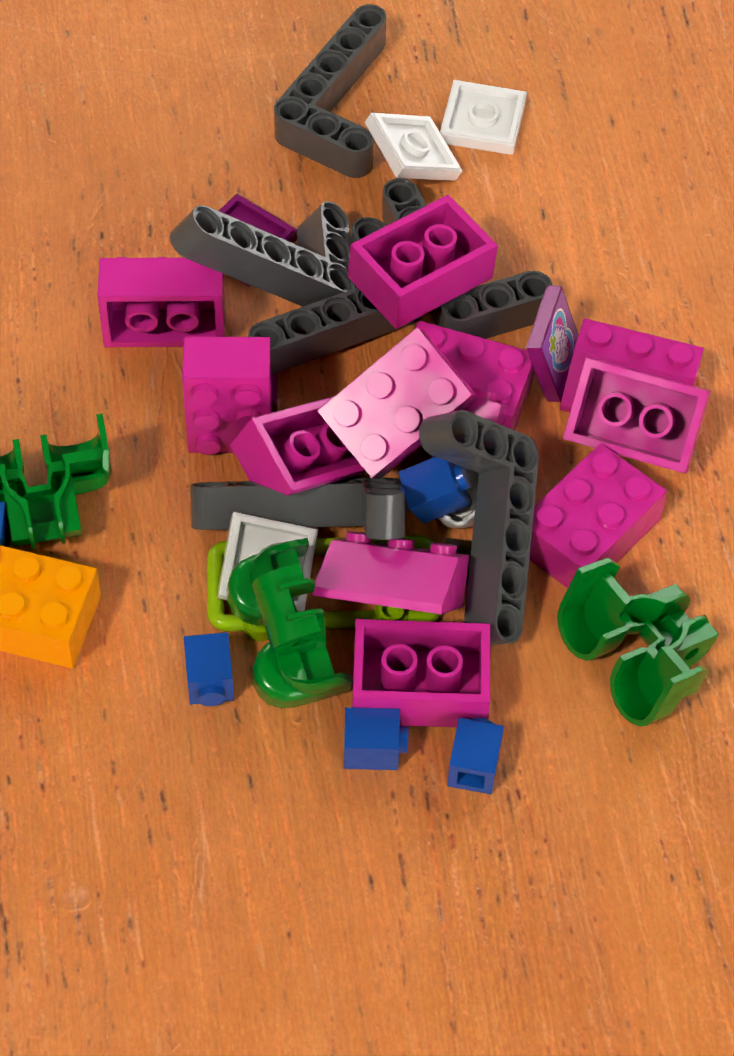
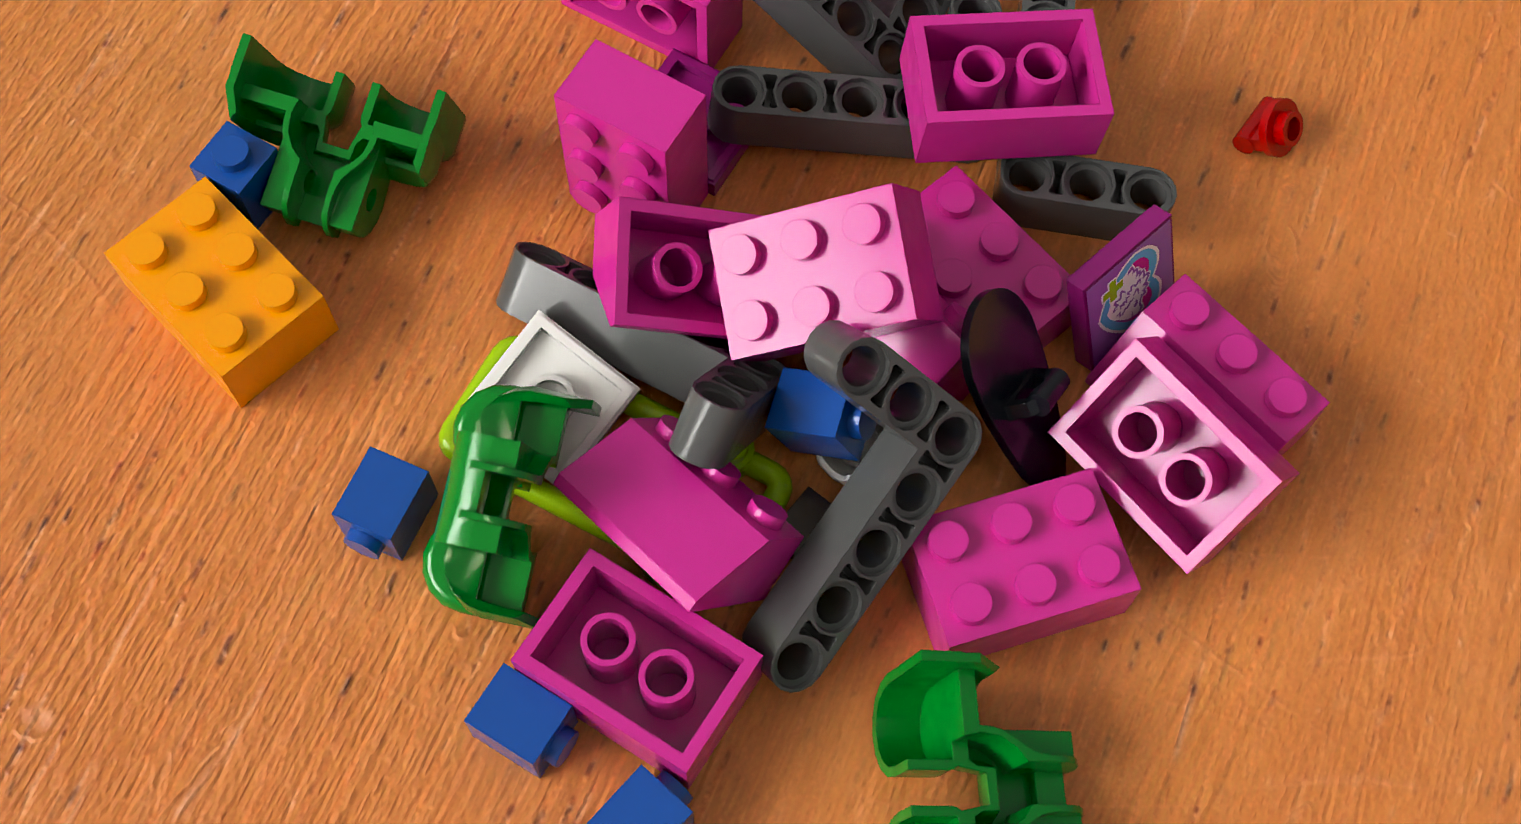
camera: 30 degrees right, 10 degrees up
(533, 418) = (1013, 383): none -> black shield
(574, 221) = (1271, 128): none -> red plate

